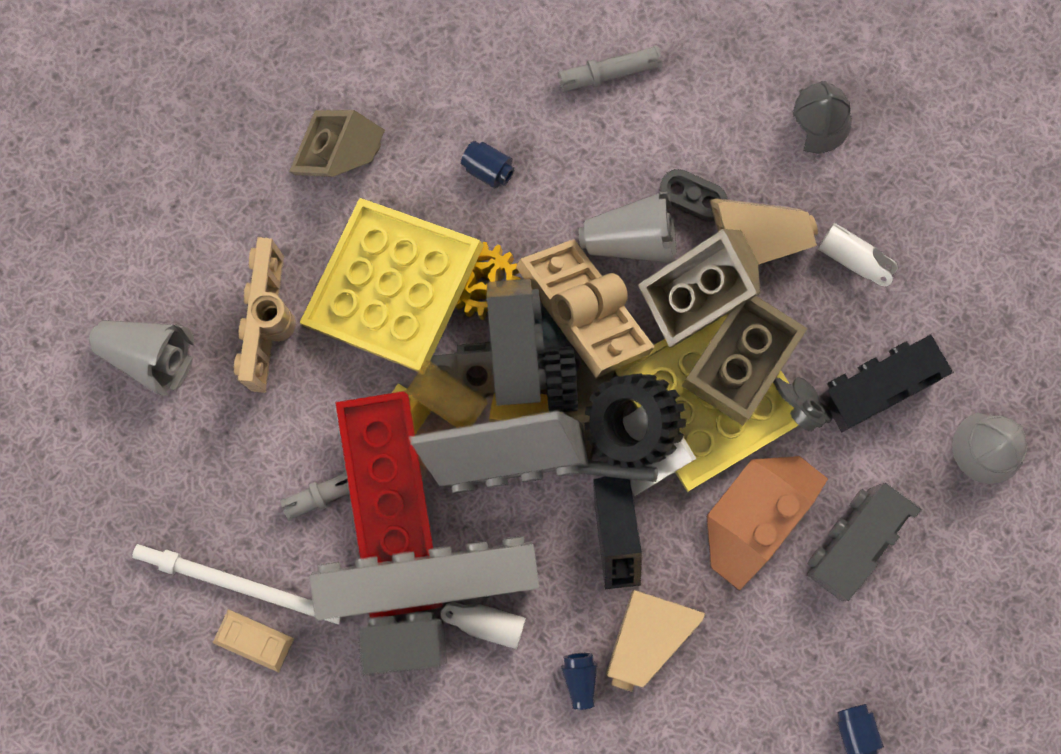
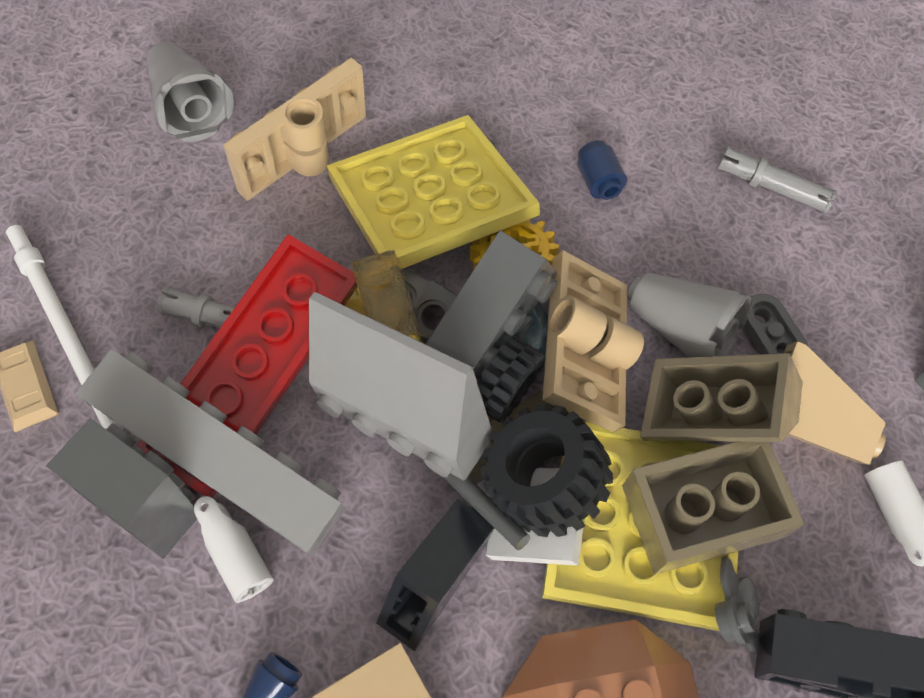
camera: 35 degrees right, 15 degrees down
(336, 143) = (493, 65): dark tan slope -> none

